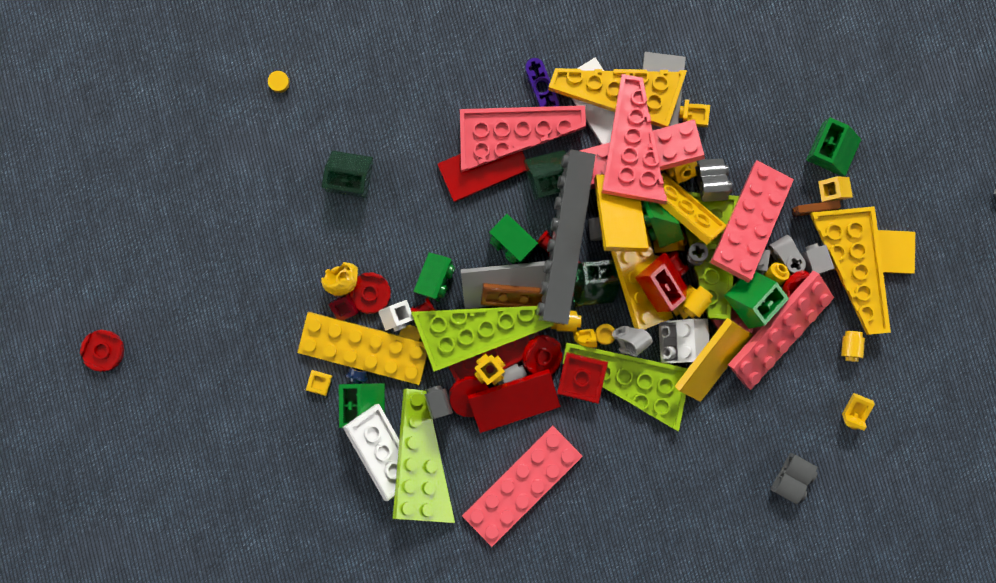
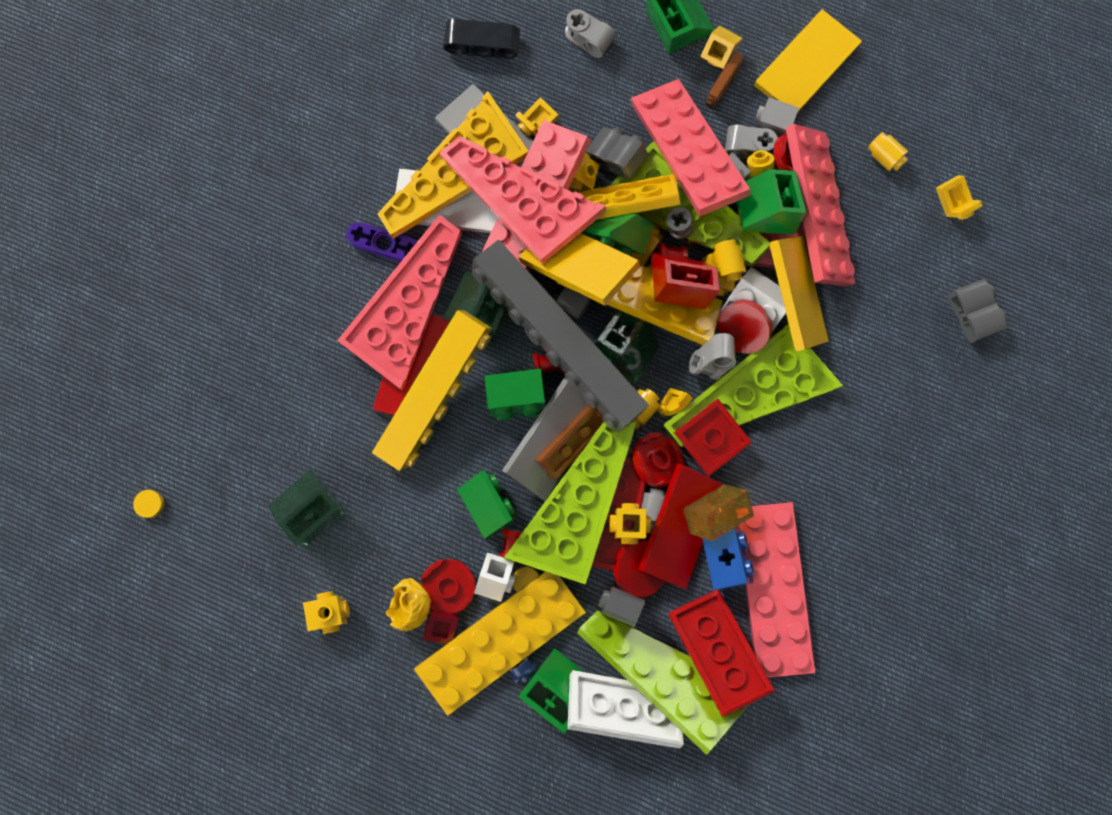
camera: 50 degrees left, 5 degrees down
(292, 233) = (317, 616): none -> yellow brick
(319, 382) = (497, 718): yellow tile -> none
(458, 482) = (721, 653): none -> red tile
(475, 189) = (432, 390): none -> yellow brick
(518, 432) = (725, 574): none -> blue brick
(539, 416) = (718, 512): none -> clear yellow brick
(604, 334) = (685, 380): yellow tile -> none
(667, 344) = (747, 325): none -> red tile
(718, 38) = (481, 39): none -> black beam
(777, 104) = (590, 33): none -> light grey piece
(856, 255) = (800, 77): yellow wing -> none

